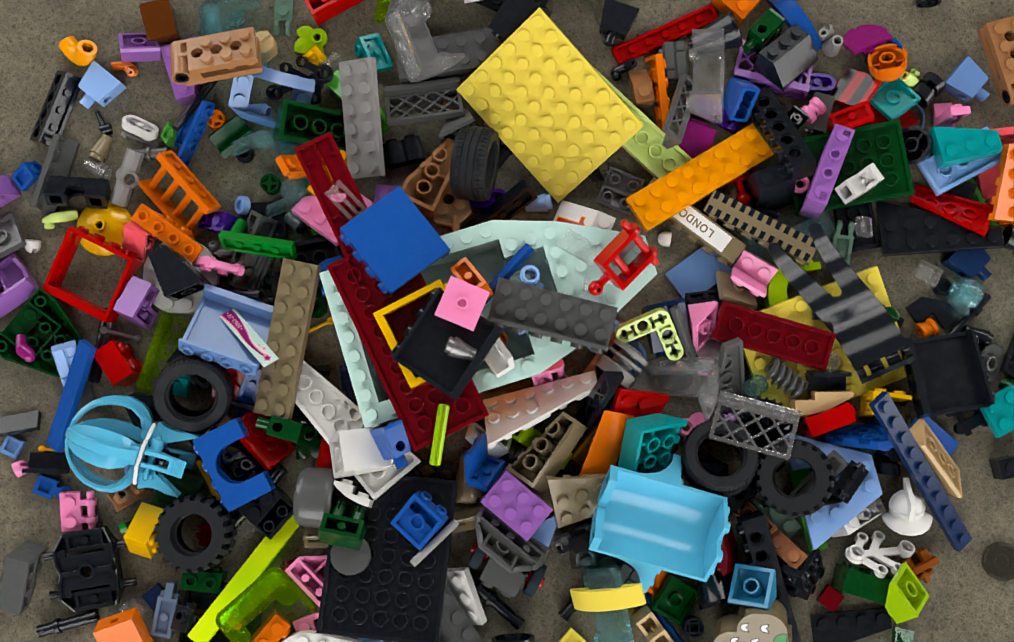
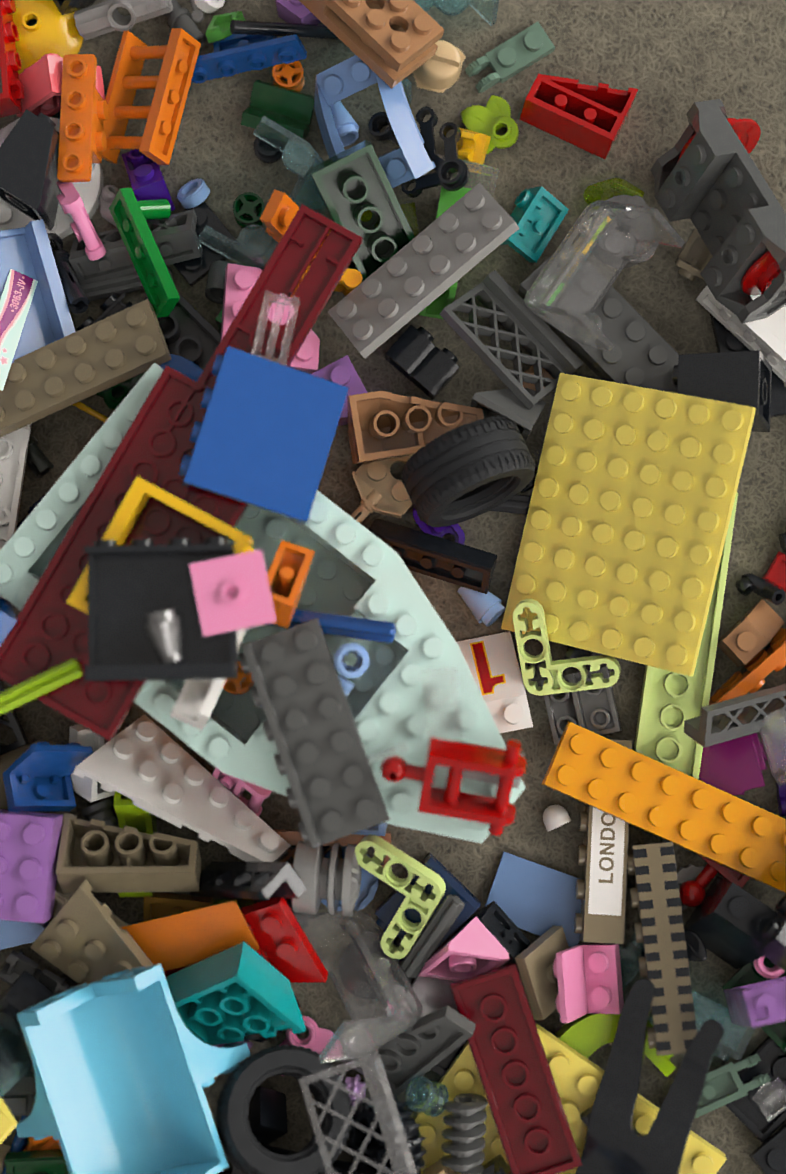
camera: 55 degrees right, 0 degrees up
(595, 190) = (554, 669): none -> yellowish green beam

